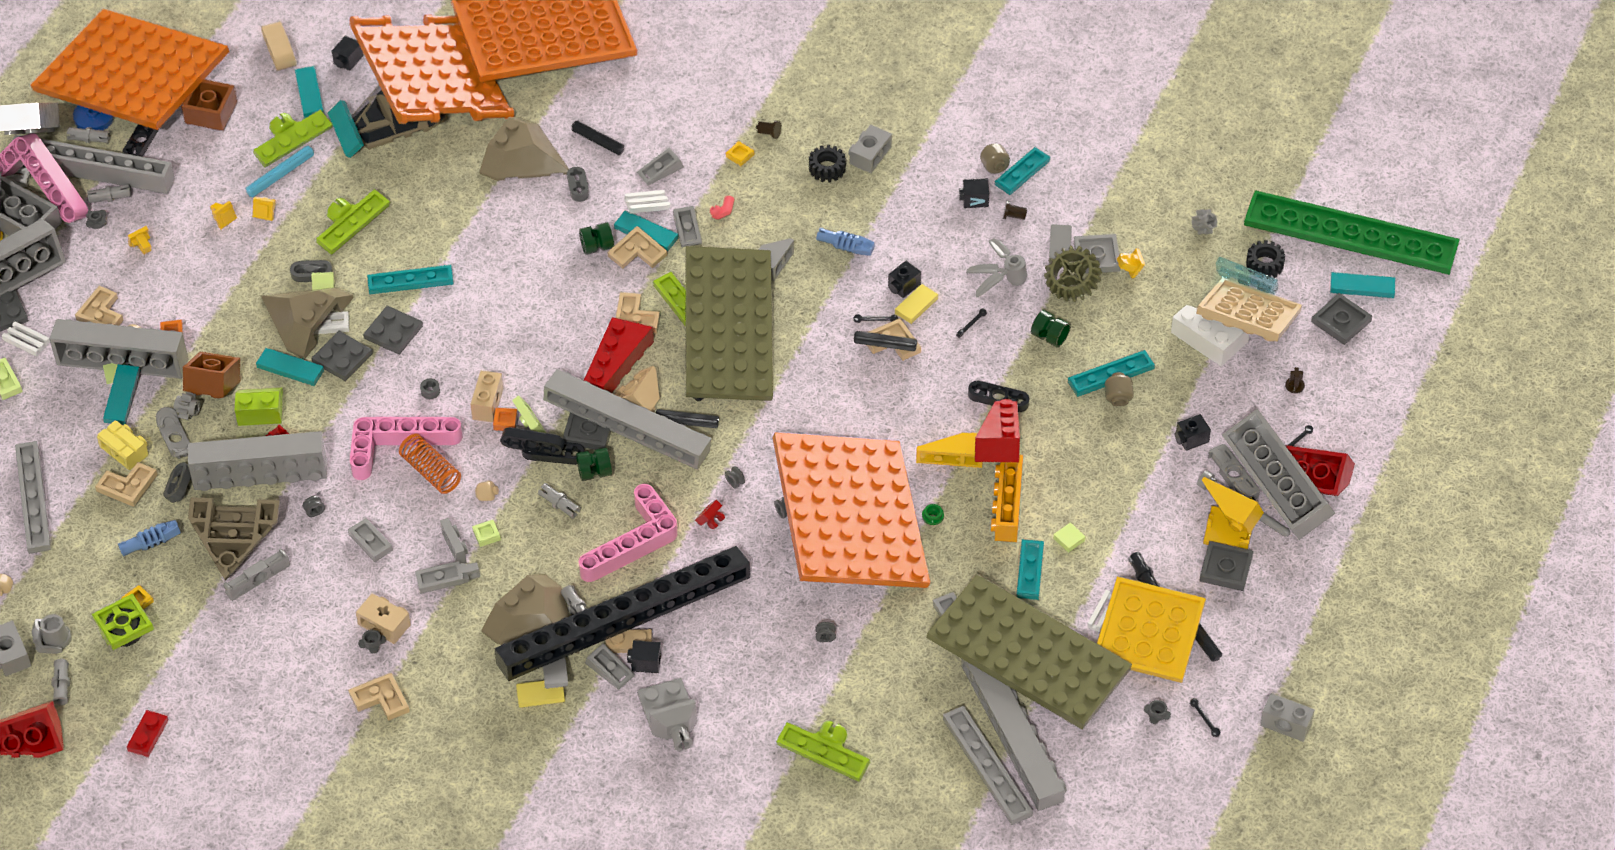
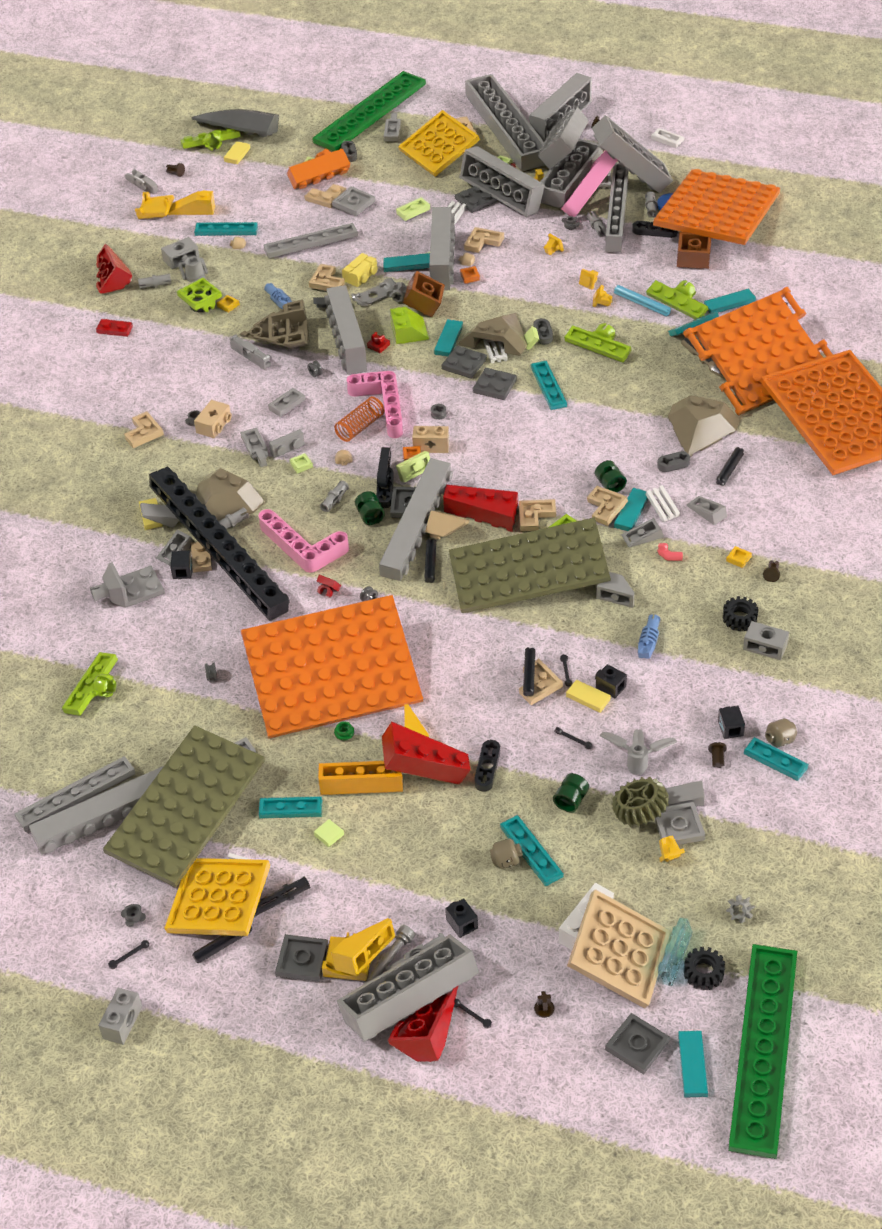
camera: 85 degrees right, 5 degrees down
(278, 46) = (771, 276): tan beam -> none

